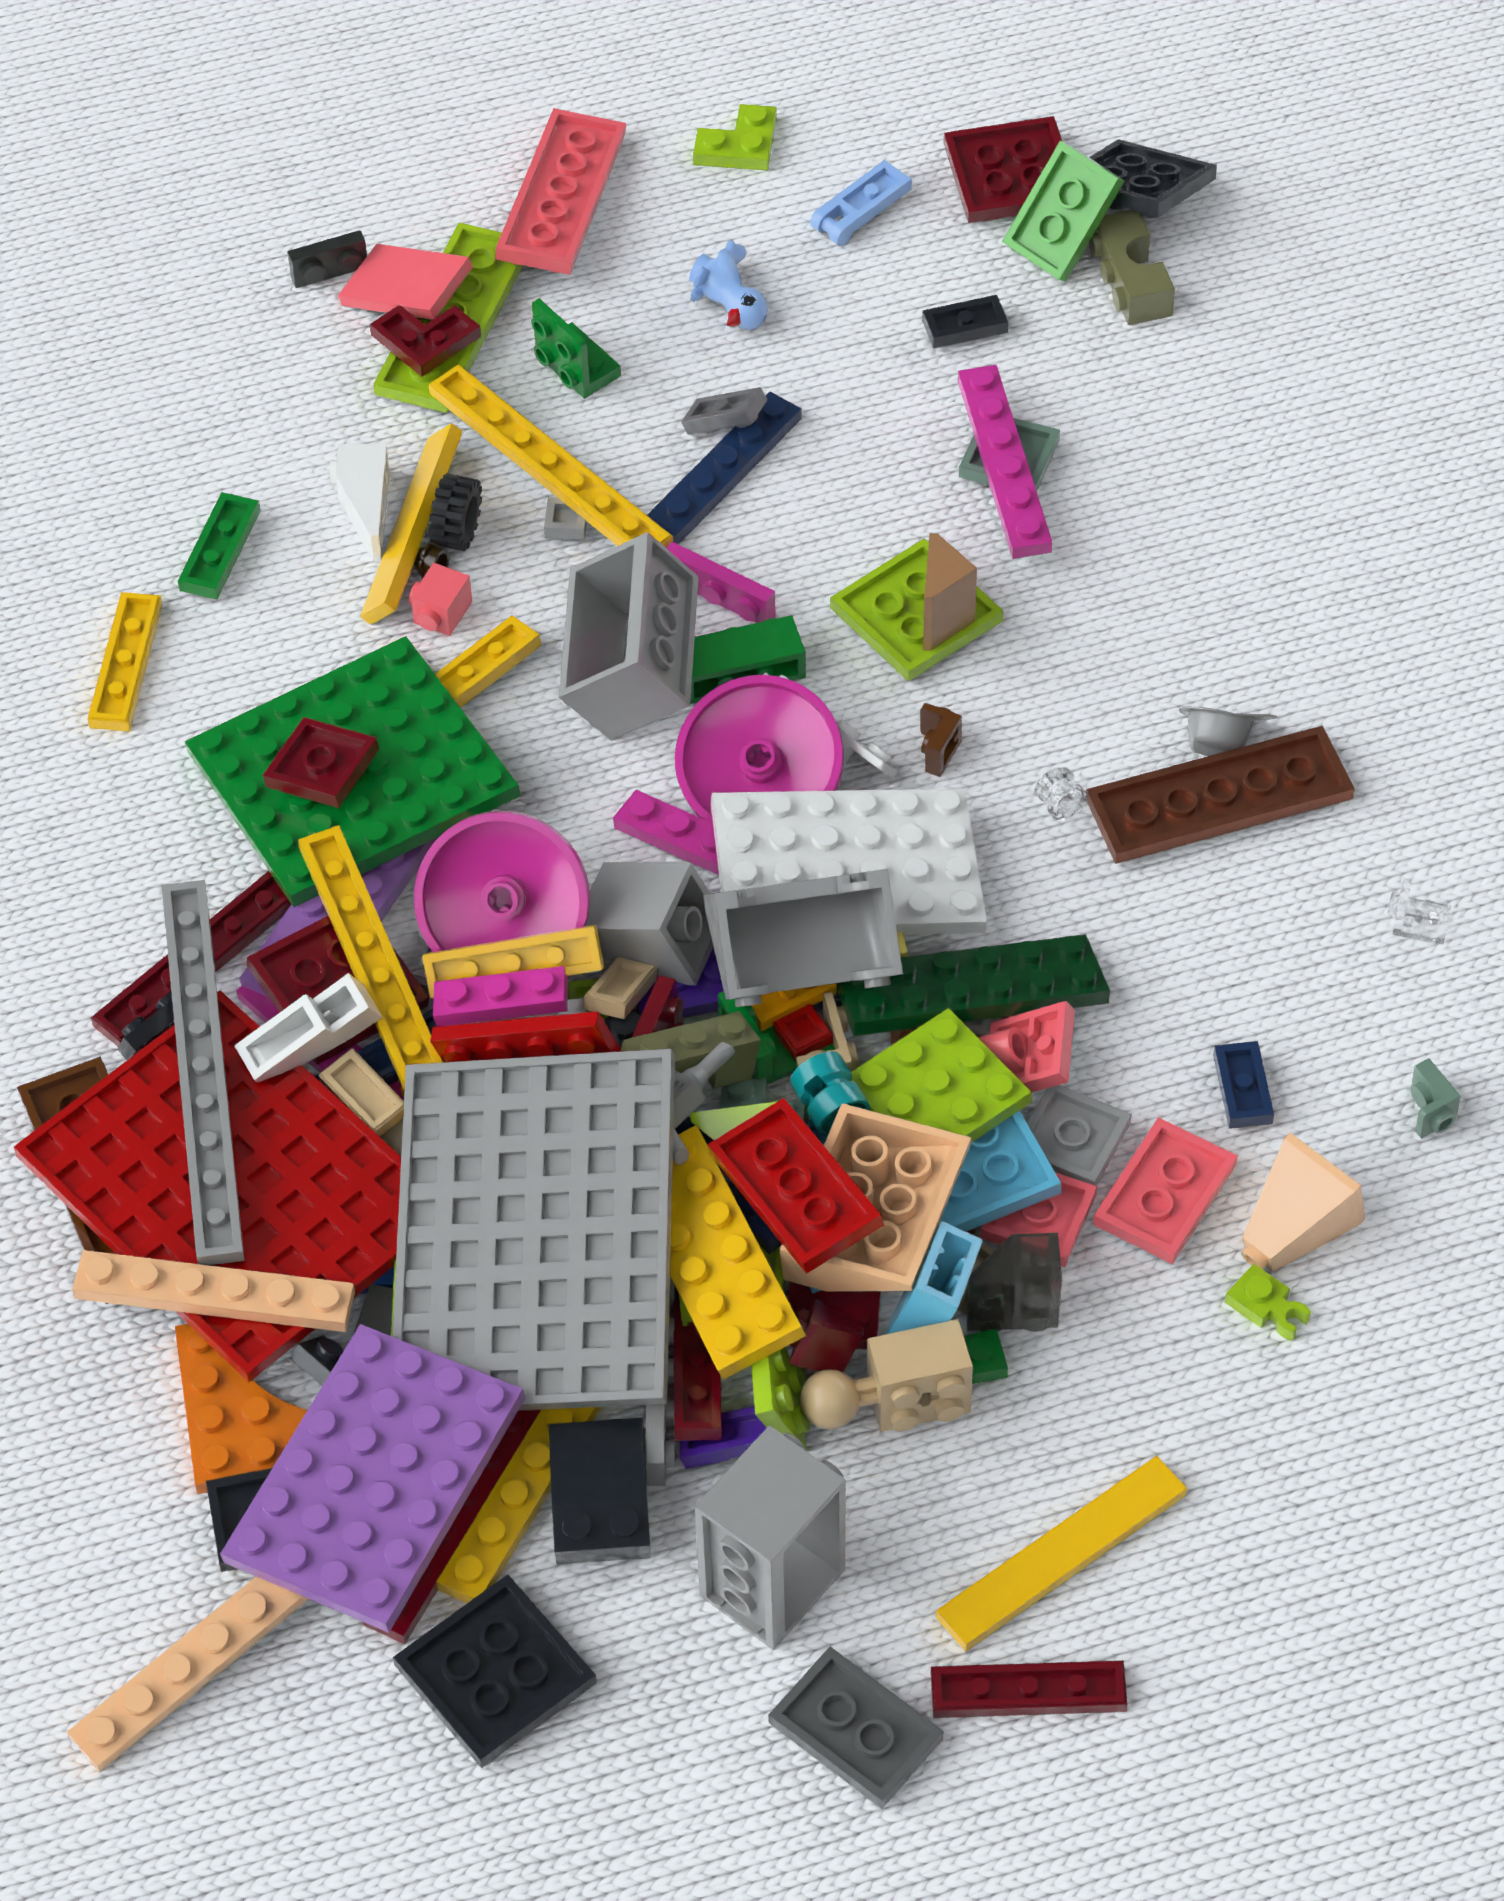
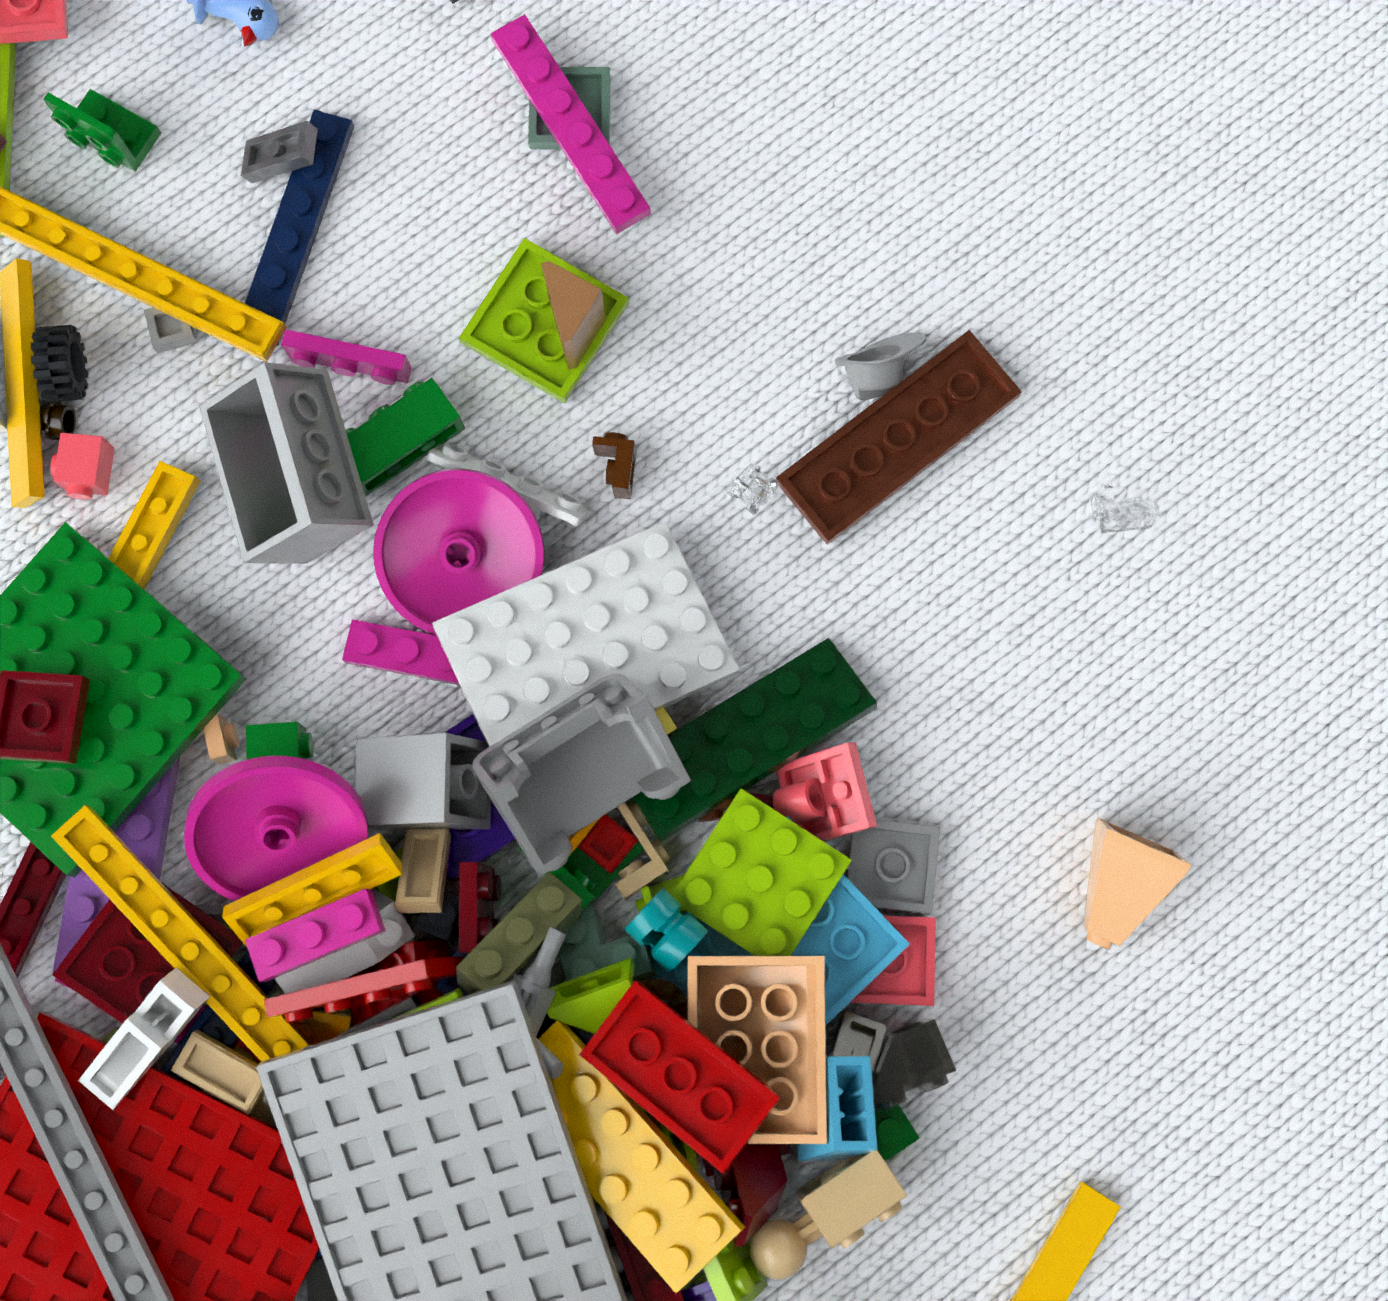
camera: 20 degrees left, 25 degrees up
(1165, 1190) = (996, 895): coral plate -> none
(1243, 1084) = (1027, 754): dark blue plate -> none
(1264, 1298) = (1118, 976): lime plate -> none
(1435, 1097) = (1202, 705): sand green bracket -> none

